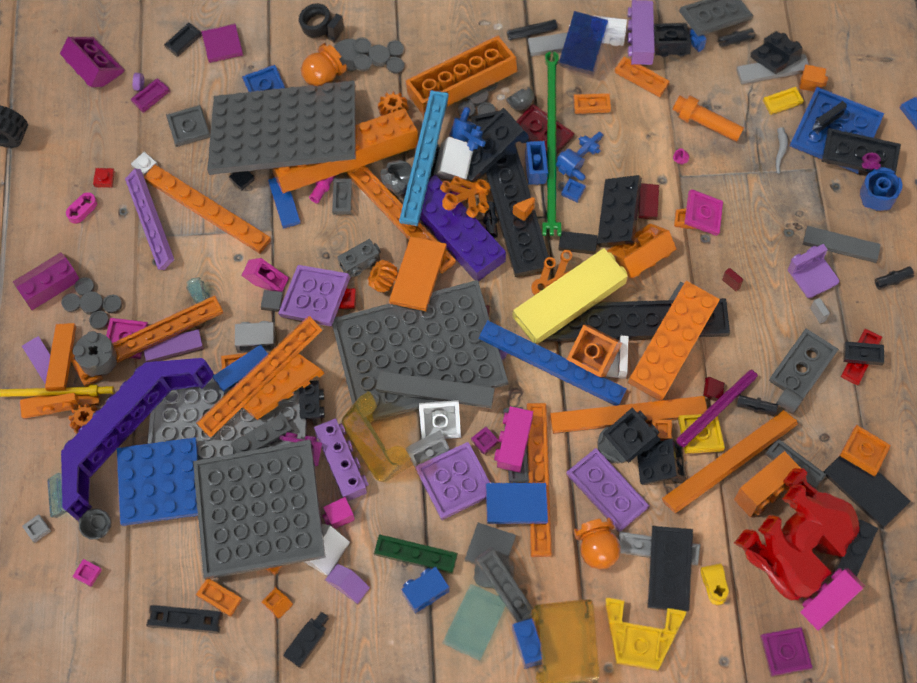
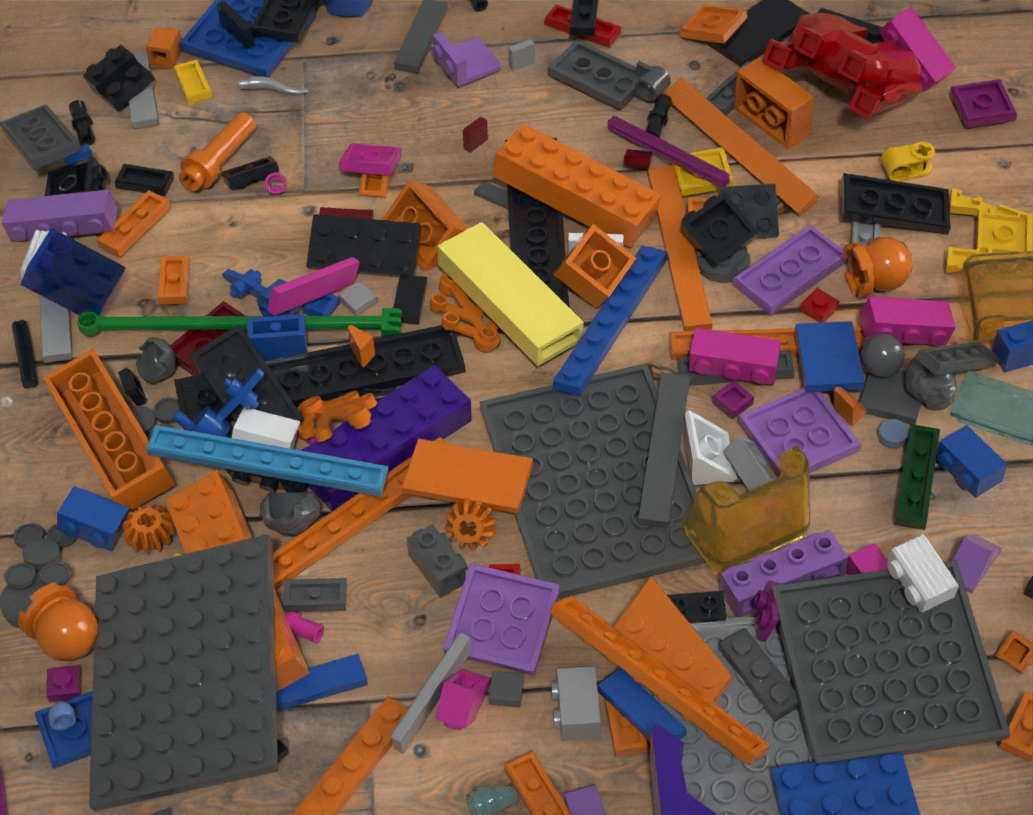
camera: 90 degrees left, 15 degrees down
(257, 252) = (430, 693): none -> light grey tile
(267, 74) = (61, 716): none -> medium blue hinge
(293, 77) = (63, 683): none -> magenta plate
(307, 528) = (921, 573): none -> white brick
(399, 70) = (92, 518): none -> blue brick
(455, 543) = (893, 433): none -> sand blue tile
(475, 513) = (848, 406): none -> orange slope
(500, 87) = (132, 386): none -> black tile
(514, 537) = (882, 355): none -> dark grey hair
(546, 559) = (909, 320): none -> dark pink brick
(572, 506) = (819, 305): none -> red plate
(575, 178) = (313, 286): none -> dark pink tile
(578, 211) = (358, 298): none -> light grey tile
(685, 80) = (144, 179): none -> black tile
(690, 139) = (241, 175): none -> black plate

